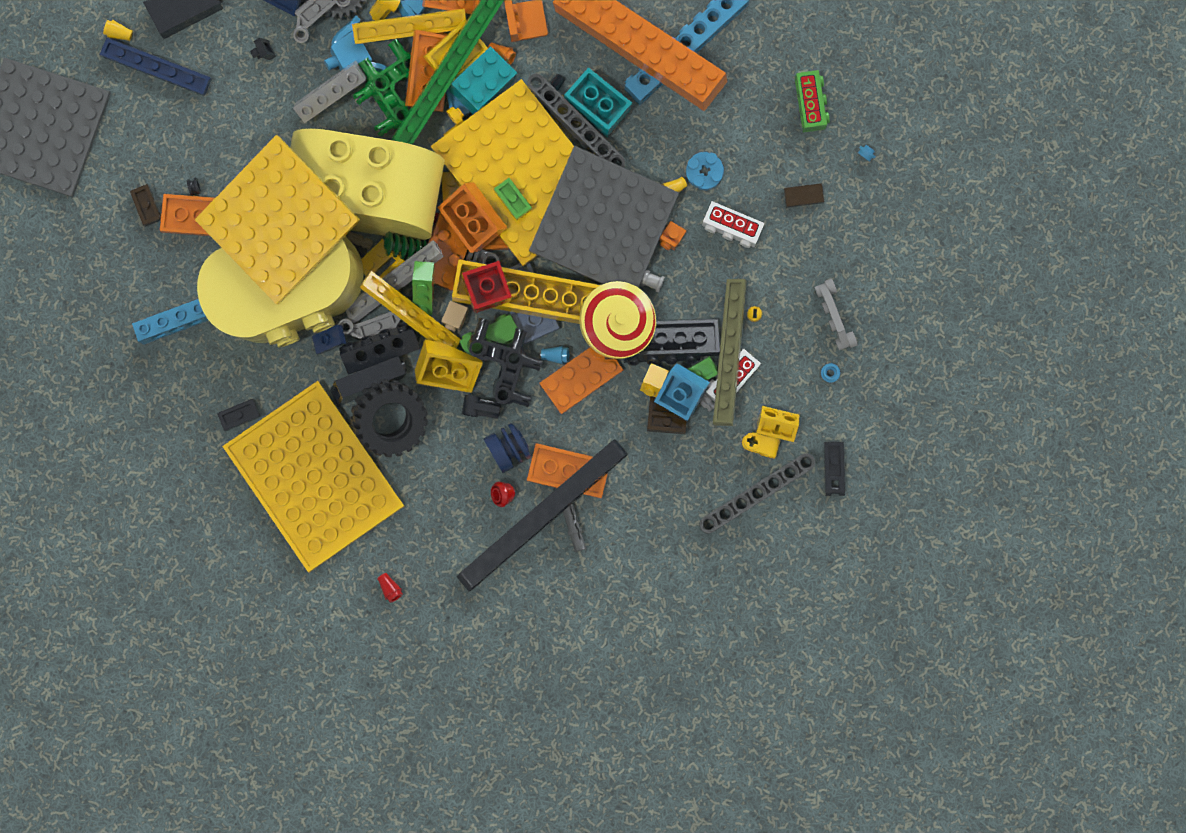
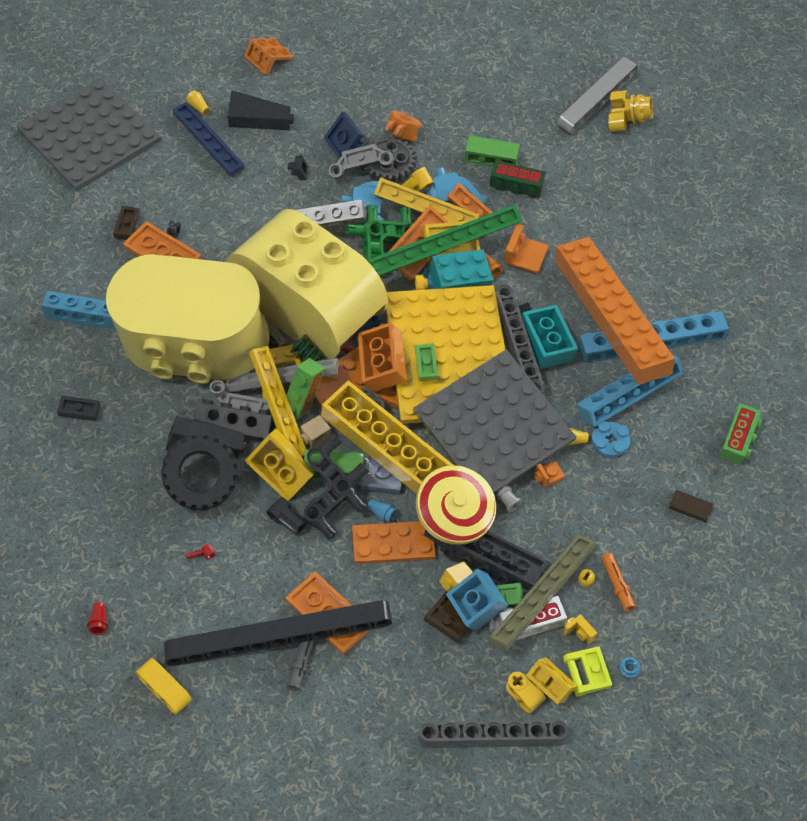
camera: 25 degrees right, 25 degrees down
(277, 219) = (216, 254): yellow plate -> none
(313, 476) = (102, 492): yellow plate -> none
(329, 339) = (196, 390): dark blue plate -> none
(436, 476) = (206, 550): none -> red hand
(479, 610) = (163, 686): none -> yellow beam
(486, 287) = (356, 408): red brick -> none
(502, 493) = (255, 596): red cone -> none
(507, 447) = (286, 557): dark blue wheel -> none
(689, 127) = (620, 395): none -> dark azure brick
(732, 225) = (610, 493): white brick -> none
(778, 364) = (583, 629): none -> yellow bracket
(782, 303) = (621, 590): none -> orange pin
(804, 391) = (594, 669): none -> neon yellow plate
(834, 468) = (583, 755): black plate -> none
(844, 339) = (666, 594): light grey plate -> none
(866, 152) = (770, 501): dark azure plate -> none

